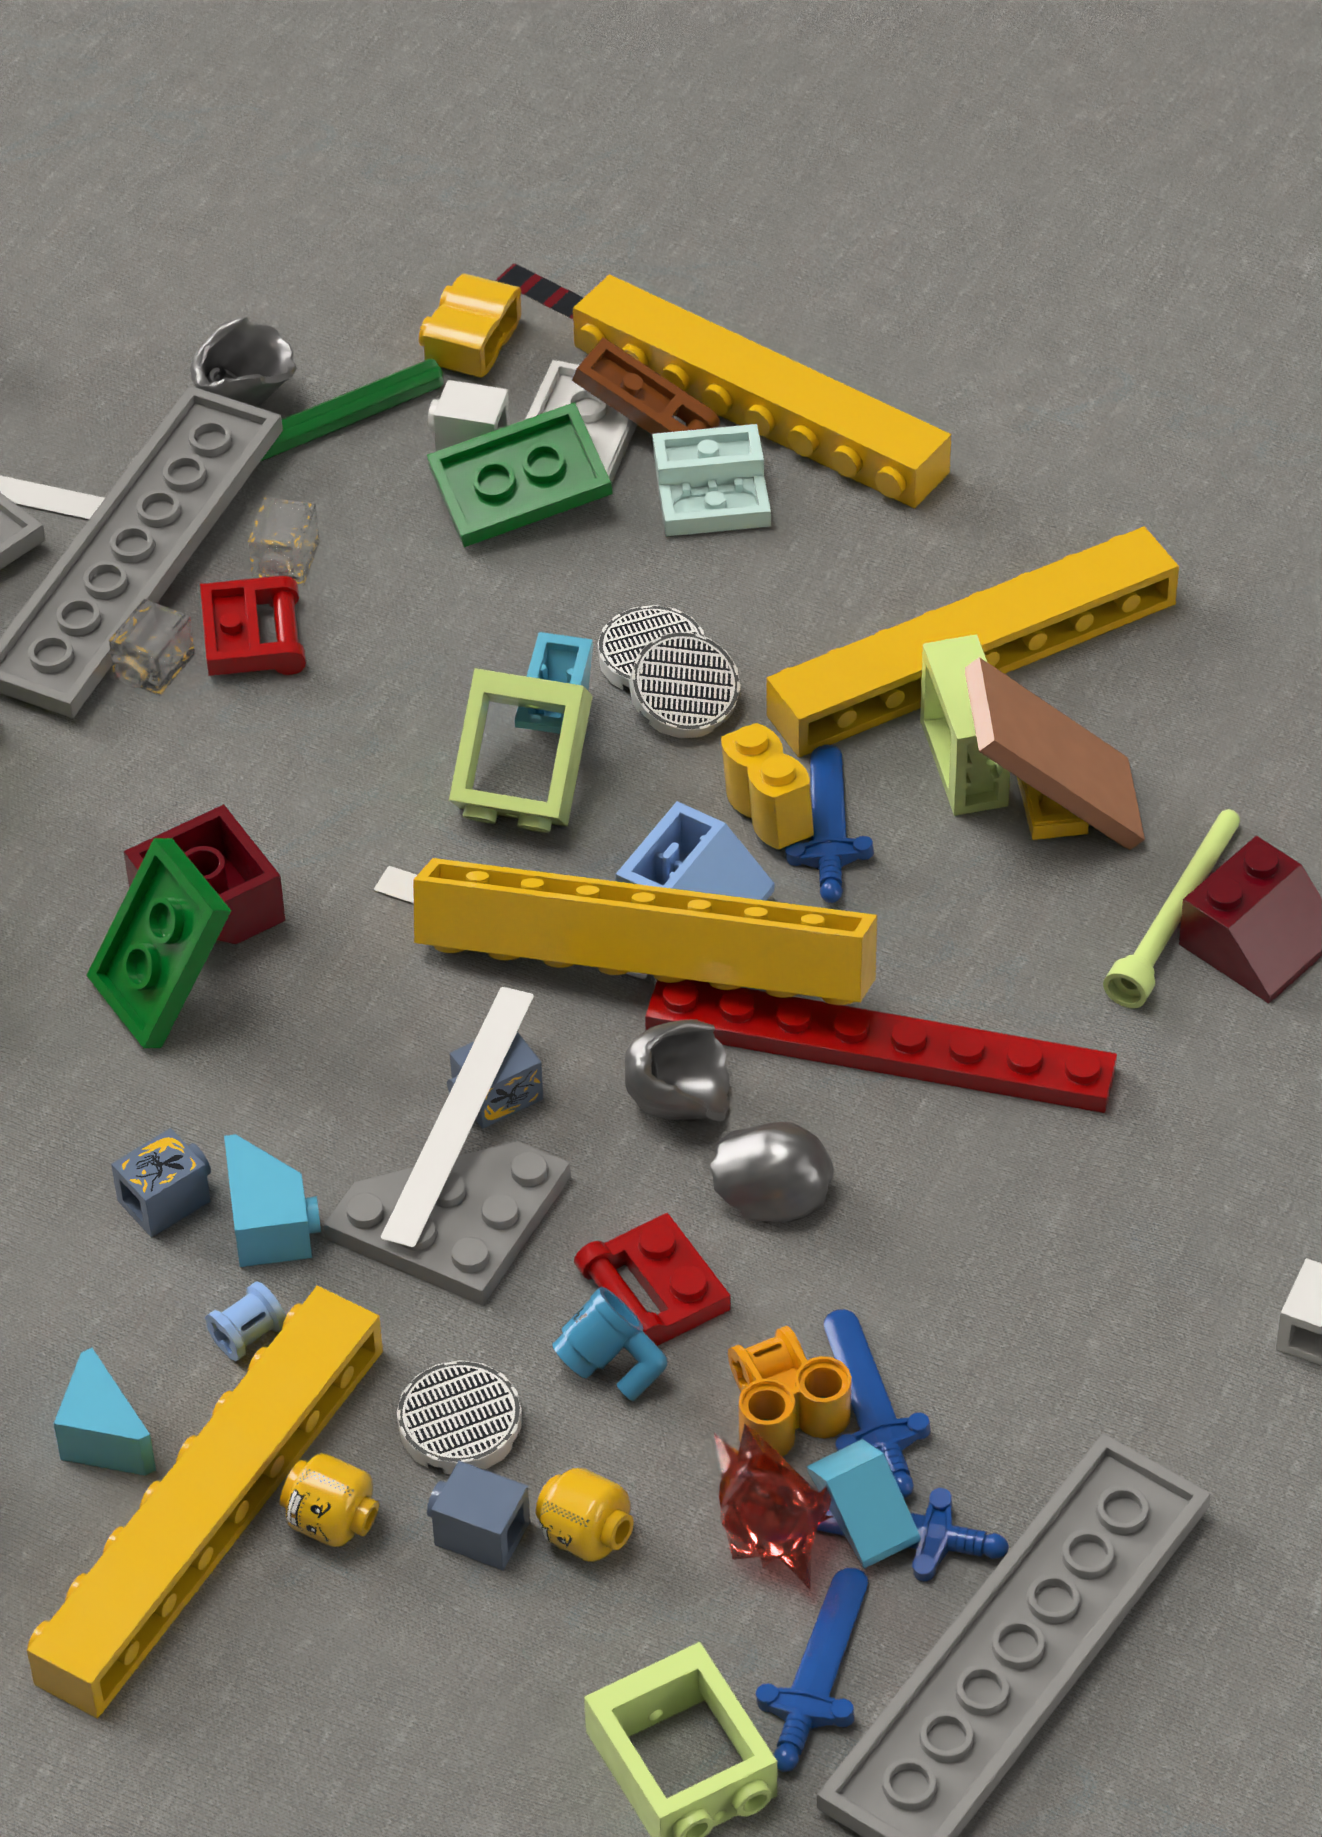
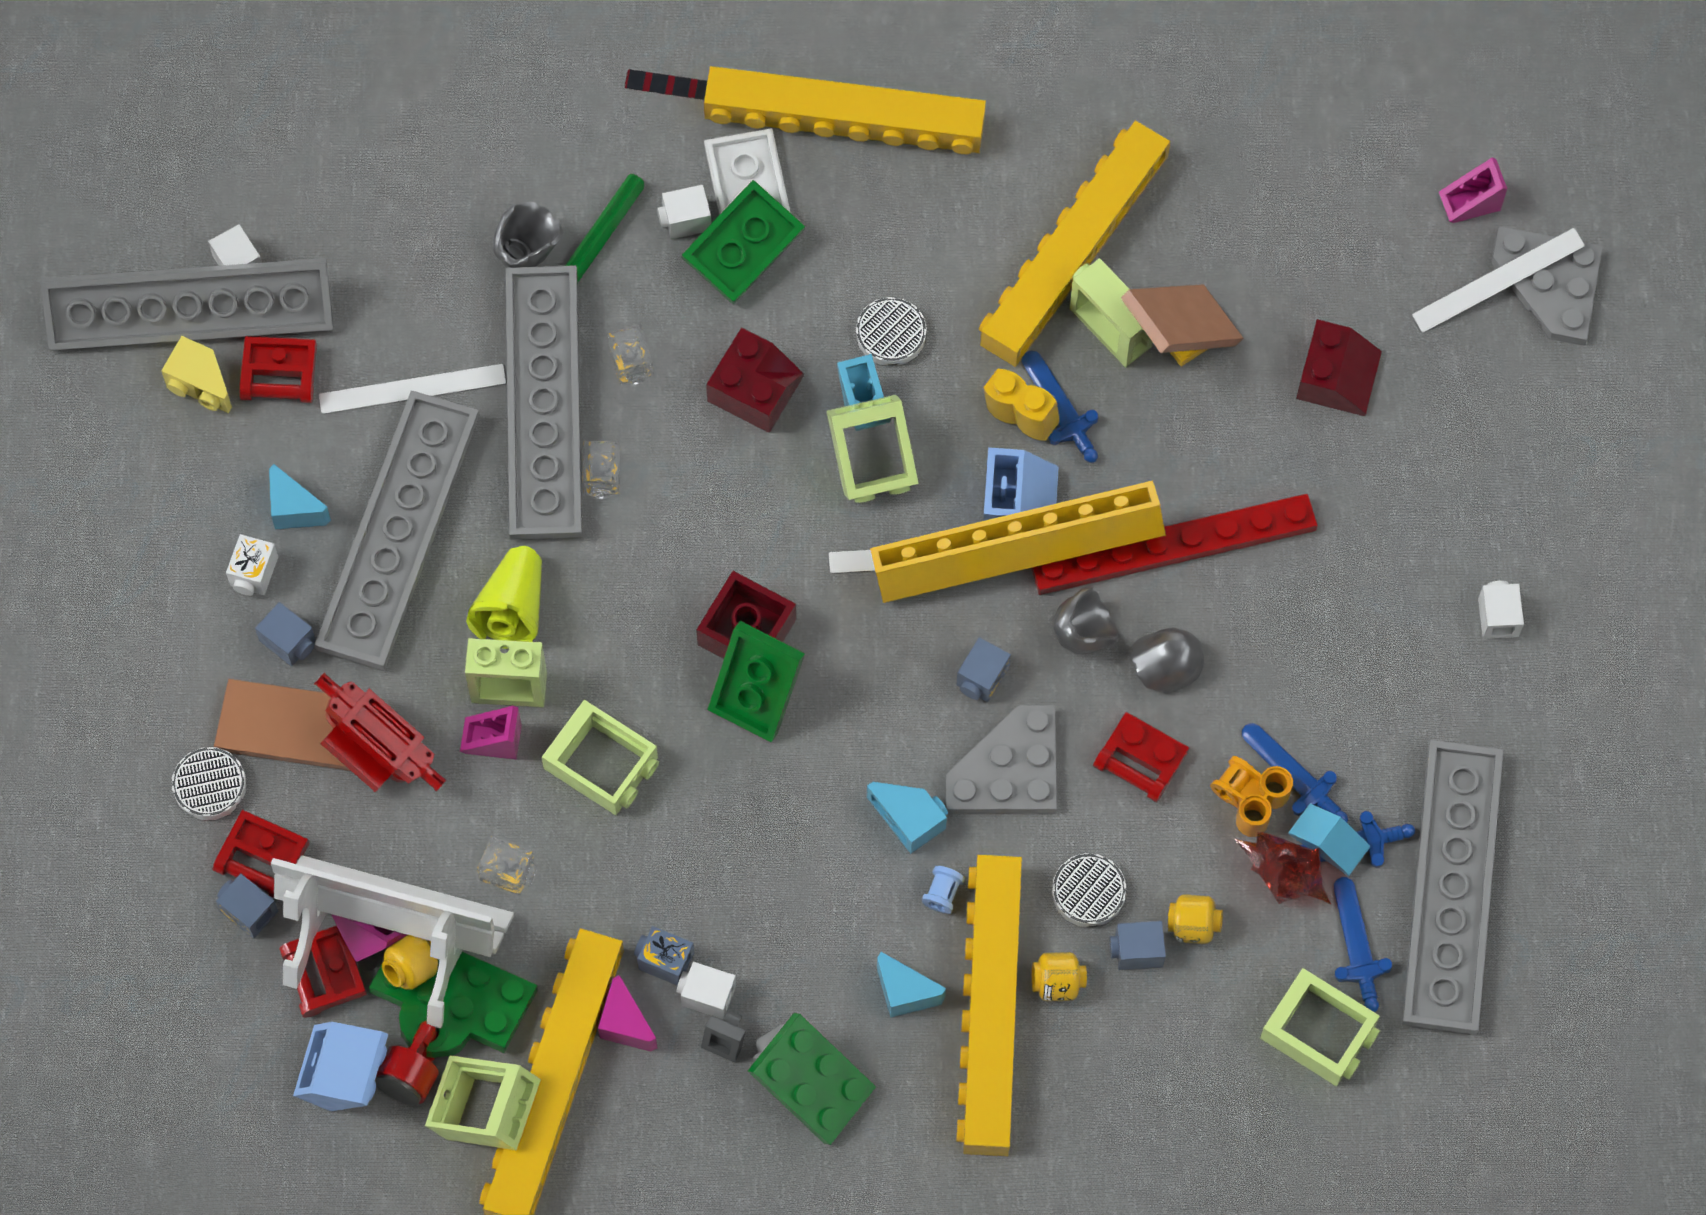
camera: 30 degrees left, 20 degrees up
(162, 1181) = (843, 825): sand blue brick -> none
(233, 626) = (639, 430): red plate -> none
(423, 627) = (753, 380): none -> dark red slope
(457, 1117) = (986, 710): white sticker -> none
(471, 324) = (640, 136): yellow brick -> none
(600, 1333) = (1140, 806): dark azure piece -> none
(640, 392) = (785, 150): dark orange plate -> none
(684, 684) = (929, 352): tile -> none
(711, 480) = (855, 191): light aqua slope -> none
(1133, 977) = (1288, 439): yellowish green piece -> none

